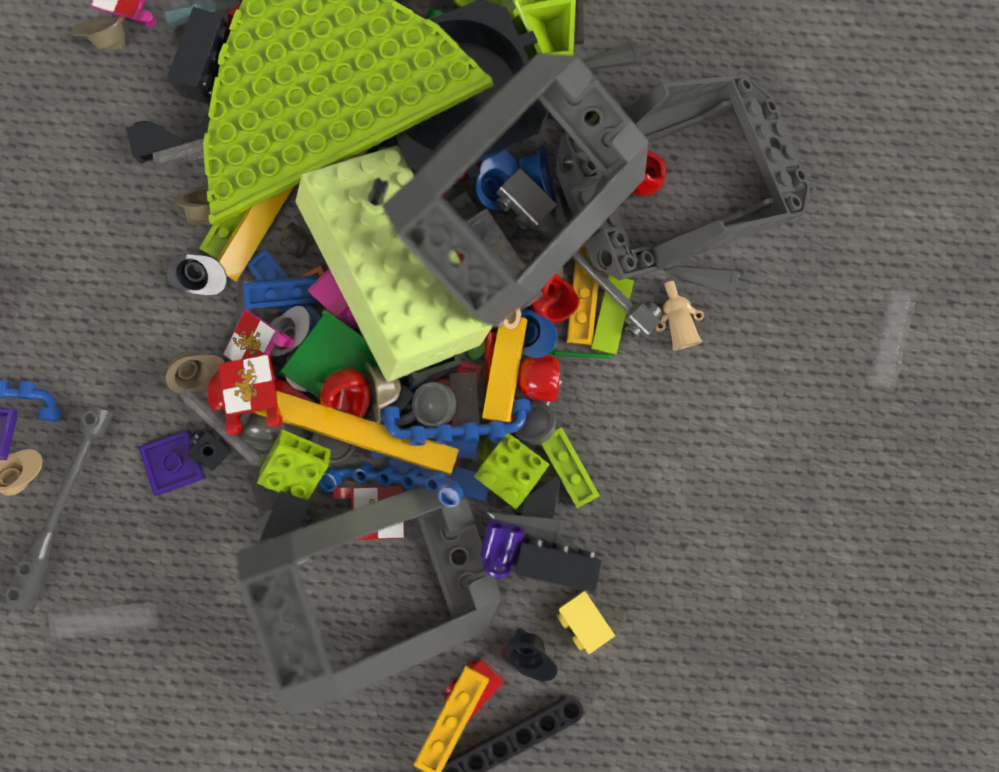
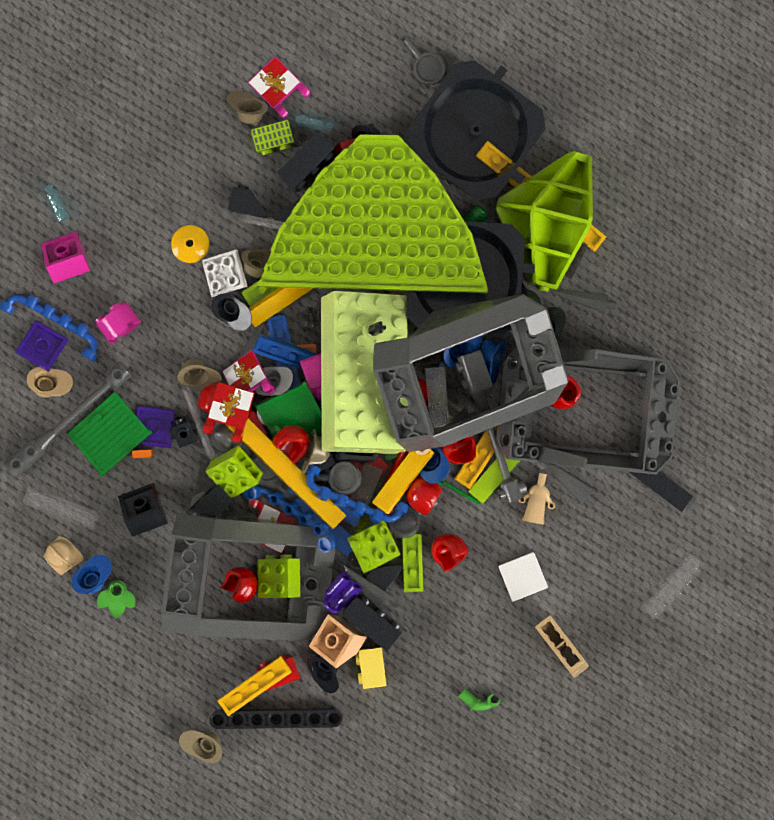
camera: 30 degrees right, 5 degrees up
(62, 356) = (118, 322): none -> dark pink brick
(120, 498) = (109, 433): none -> green piece
(122, 228) = (195, 252): none -> yellow dish
(133, 678) = (62, 555): none -> tan piece
(148, 50) = (273, 137): none -> lime brick
(167, 234) = (224, 273): none -> white tile
(172, 502) = (142, 453): none -> orange tile
(180, 686) = (92, 575): none -> blue piece
(205, 572) = (142, 510): none -> black slope
(228, 702) = (116, 601): none -> bright green plate
(376, 601) = (241, 583): none -> red piece
(414, 568) = (278, 577): none -> lime brick
(526, 611) = (337, 640): none -> light nougat slope
(606, 429) = (449, 550): none -> red piece
(710, 416) = (523, 576): none -> white tile
(735, 601) = (476, 704): none -> bright green piece
(805, 475) = (562, 646): none -> tan brick
(820, 228) = (665, 488): none -> black tile

